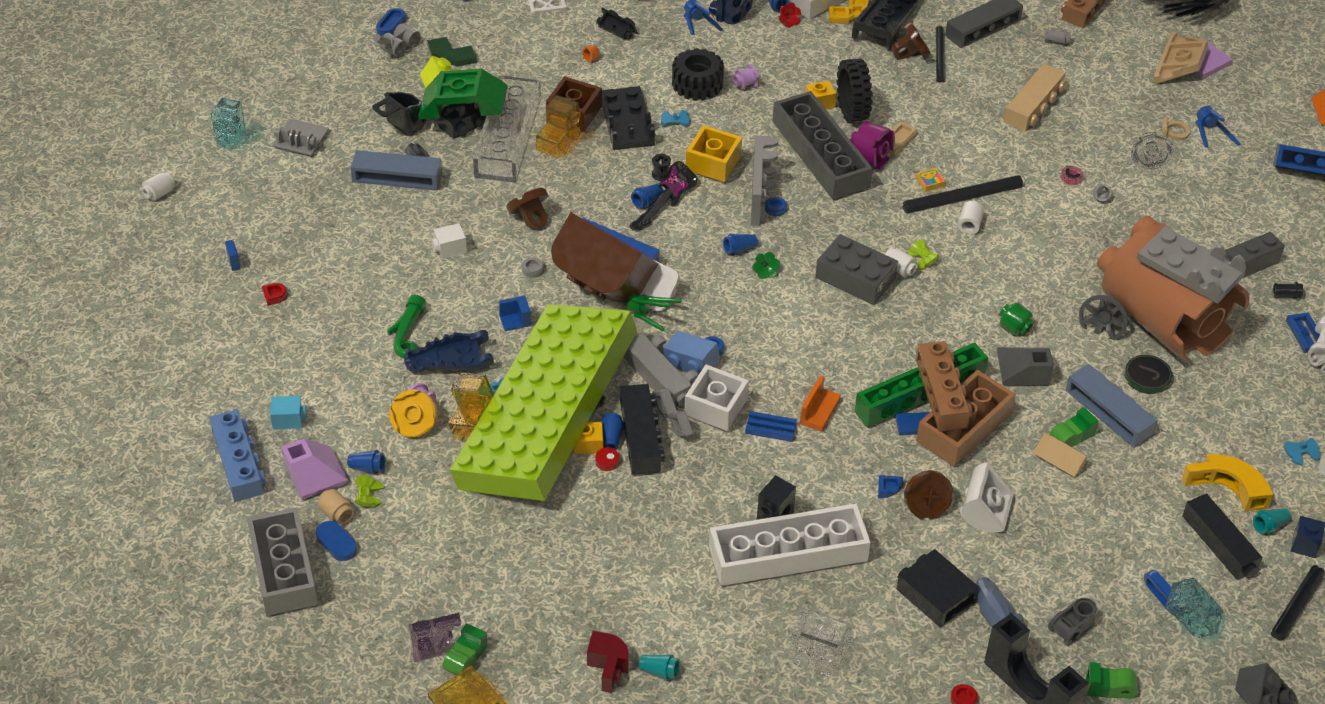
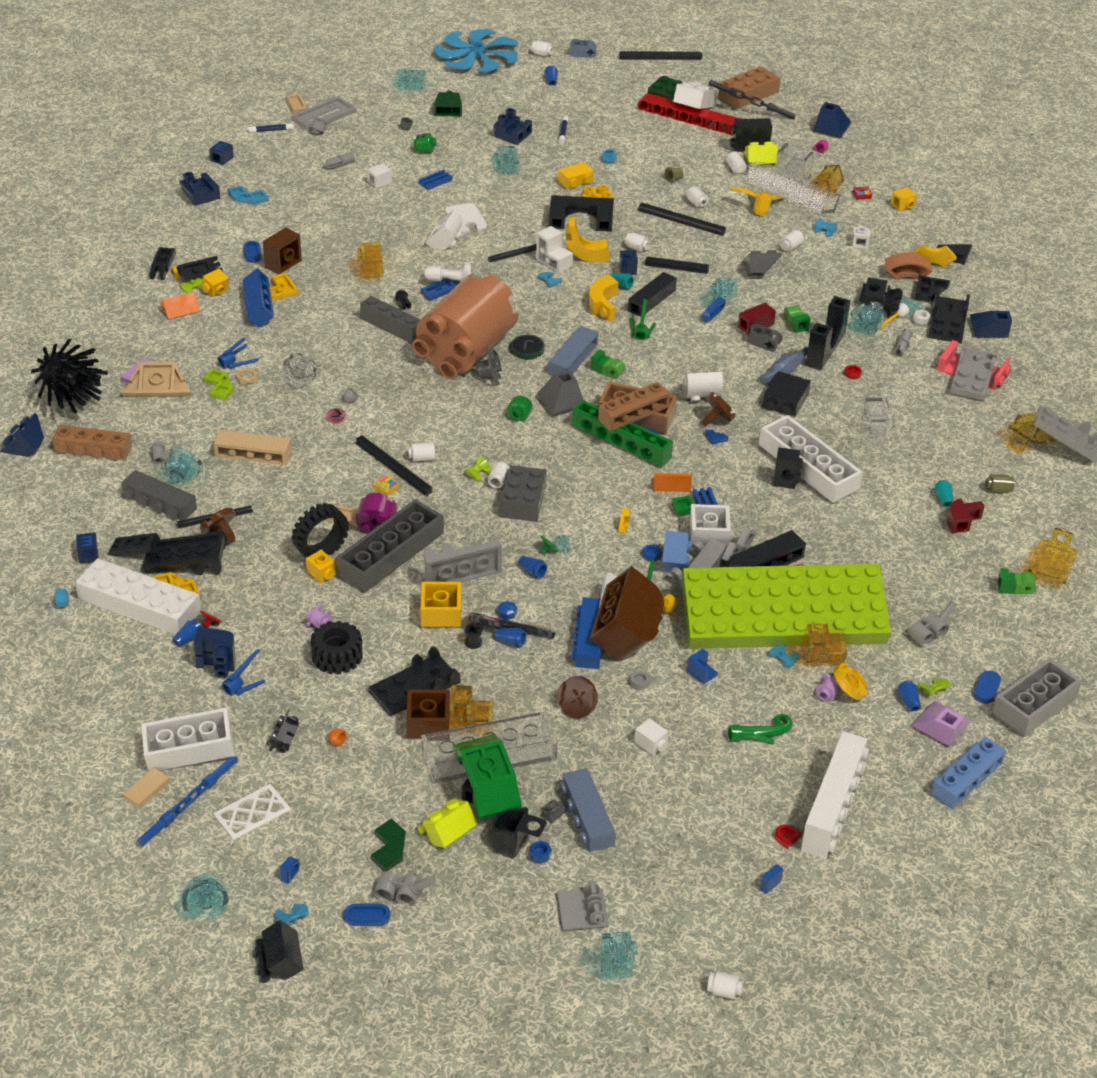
camera: 115 degrees left, 5 degrees down
(280, 328) = (835, 795): none -> white brick
(287, 412) = (906, 760): medium azure brick -> none
(335, 506) = (963, 694): tan brick -> none
(376, 130) = (540, 851): none -> blue tile
(431, 636) = (1029, 589): wing -> none
(446, 525) = (932, 626): none -> light grey beam
(453, 352) = (774, 686): dark blue animal -> none
(683, 118) = (399, 656): dark azure piece -> none
(688, 207) = (507, 610): none -> blue tile
(764, 276) = (562, 542): none -> clear light blue tile
(772, 338) = (624, 521): none -> yellow tile
(772, 399) = (682, 505): none -> green plate
(1021, 36) = (182, 466): none -> clear light blue cylinder
(1060, 454) = (633, 367): tan tile -> none
(1119, 626) = (760, 314): none -> dark red brick
(1141, 493) = (641, 331): none -> green plant
(1177, 107) = (223, 386): none -> lime tile
(1192, 264) = (474, 287): light grey hinge -> none

